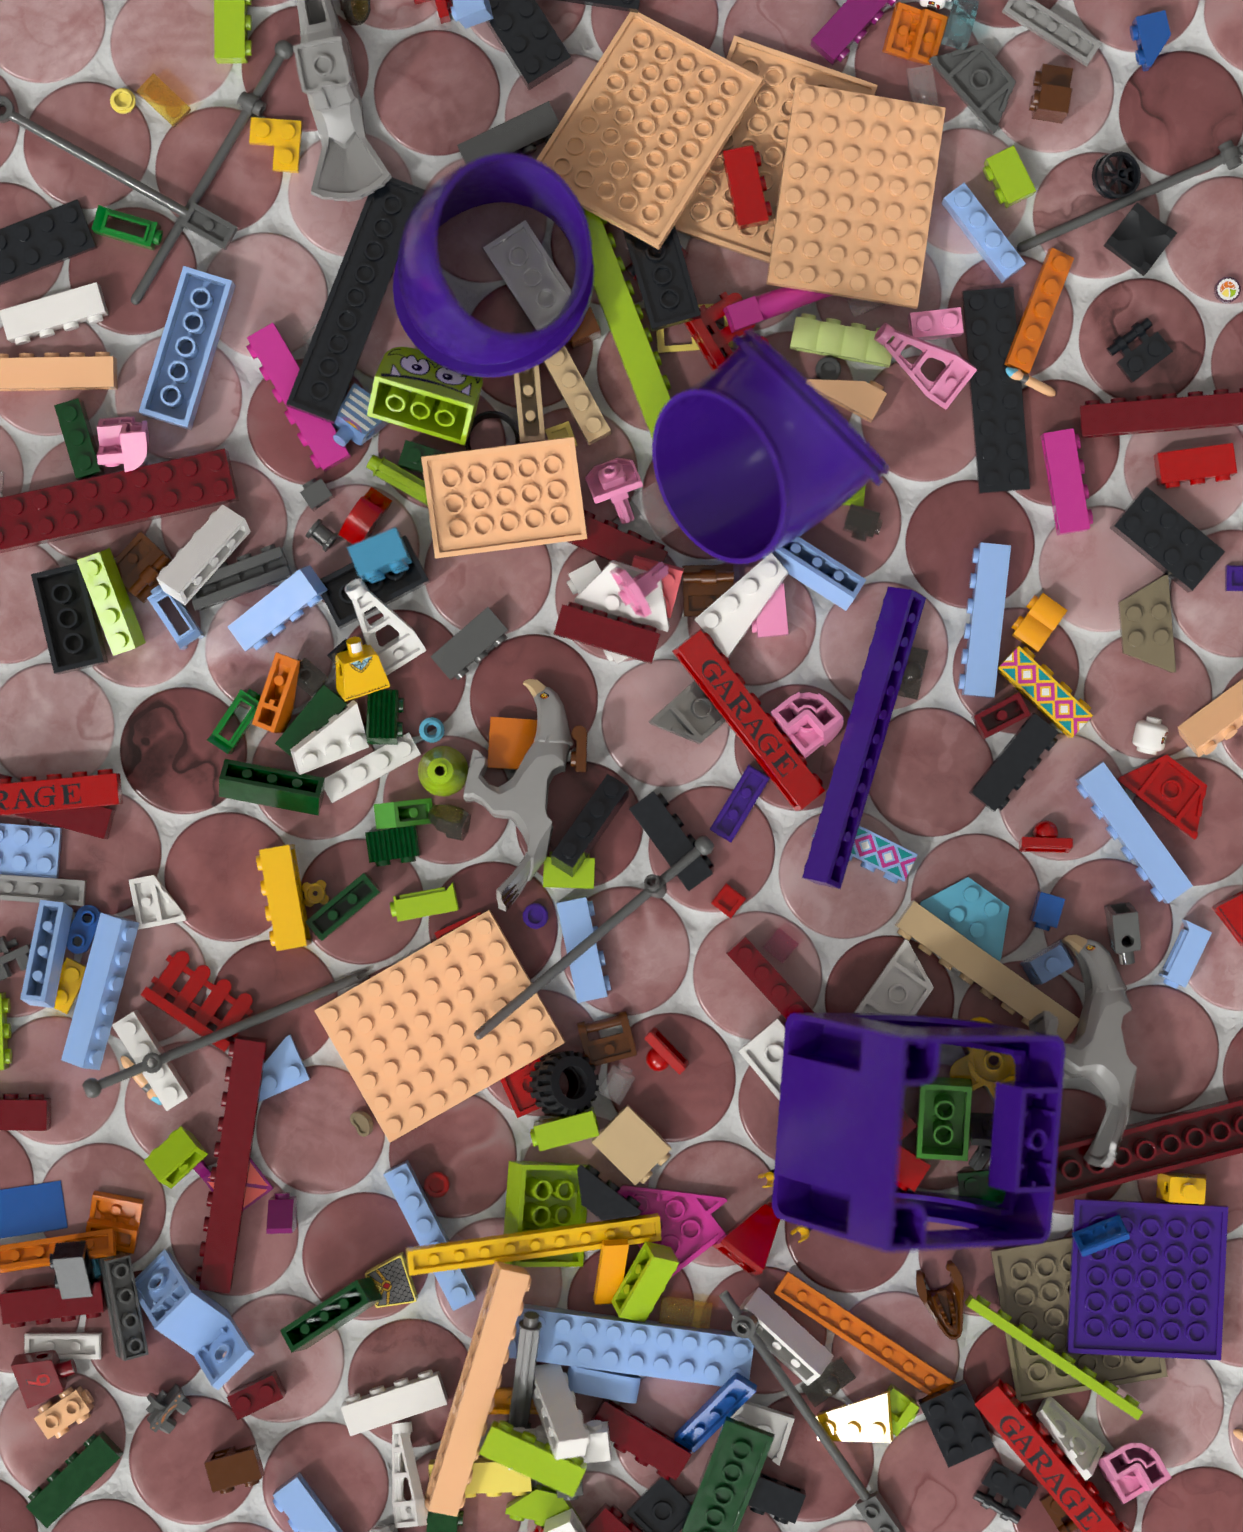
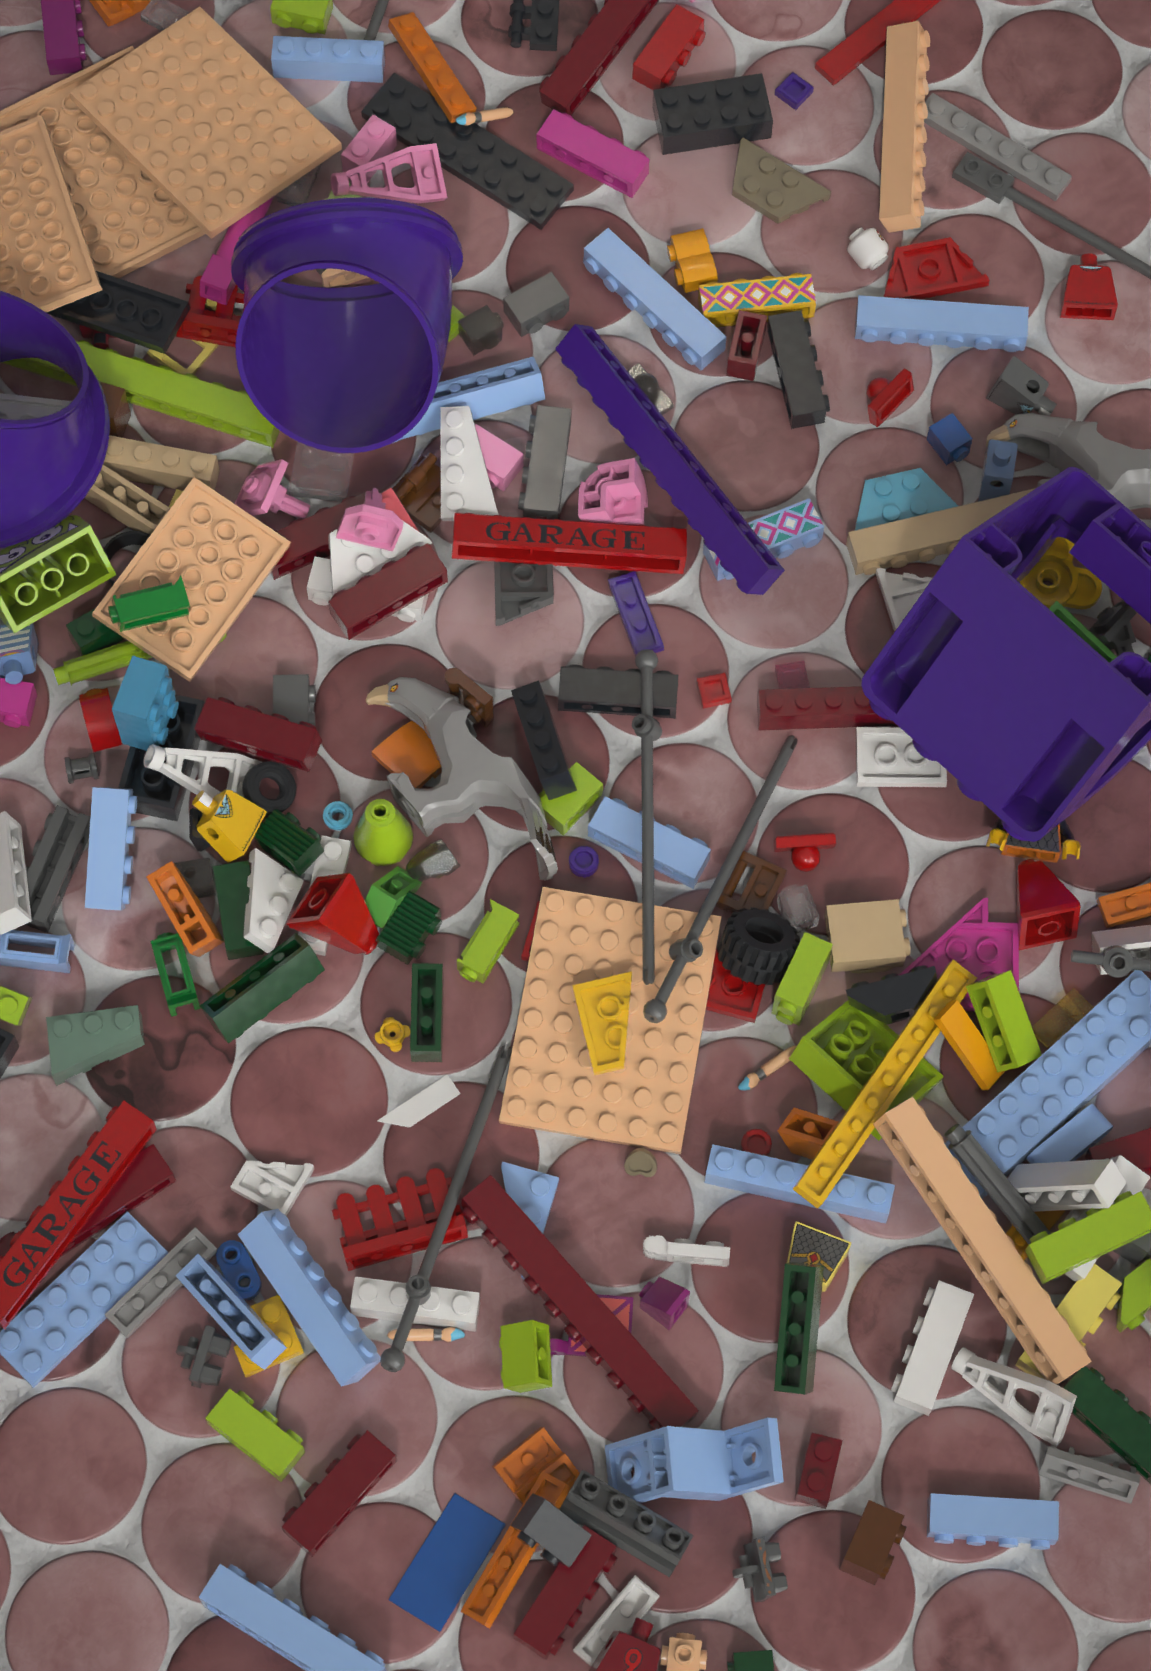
camera: 55 degrees left, 20 degrees down
(147, 706) = (91, 1038): none -> sand green wedge
(284, 897) = (372, 1055): yellow brick -> none
(303, 955) = (422, 1103): none -> white sticker
(316, 493) = (41, 743): dark grey plate -> none
(327, 1199) = (686, 1252): none -> white hinge
(355, 792) = (336, 914): none -> red slope
(410, 656) = (280, 775): none -> black tyre
(429, 1027) = (604, 1019): none -> yellow wing
(435, 637) = (258, 733): none -> dark red brick
(455, 492) = (149, 606): none -> green window
(465, 1217) = (805, 1132): none -> orange slope
(477, 1146) = (767, 1069): none -> light nougat piece
(518, 1043) = (690, 948): none -> dark grey bar
(746, 187) = (117, 198): red brick -> none
(797, 653) = (547, 462): none -> dark grey brick
(913, 544) = (536, 304): none -> dark grey brick
(1185, 955) = (1083, 361): light blue window -> none

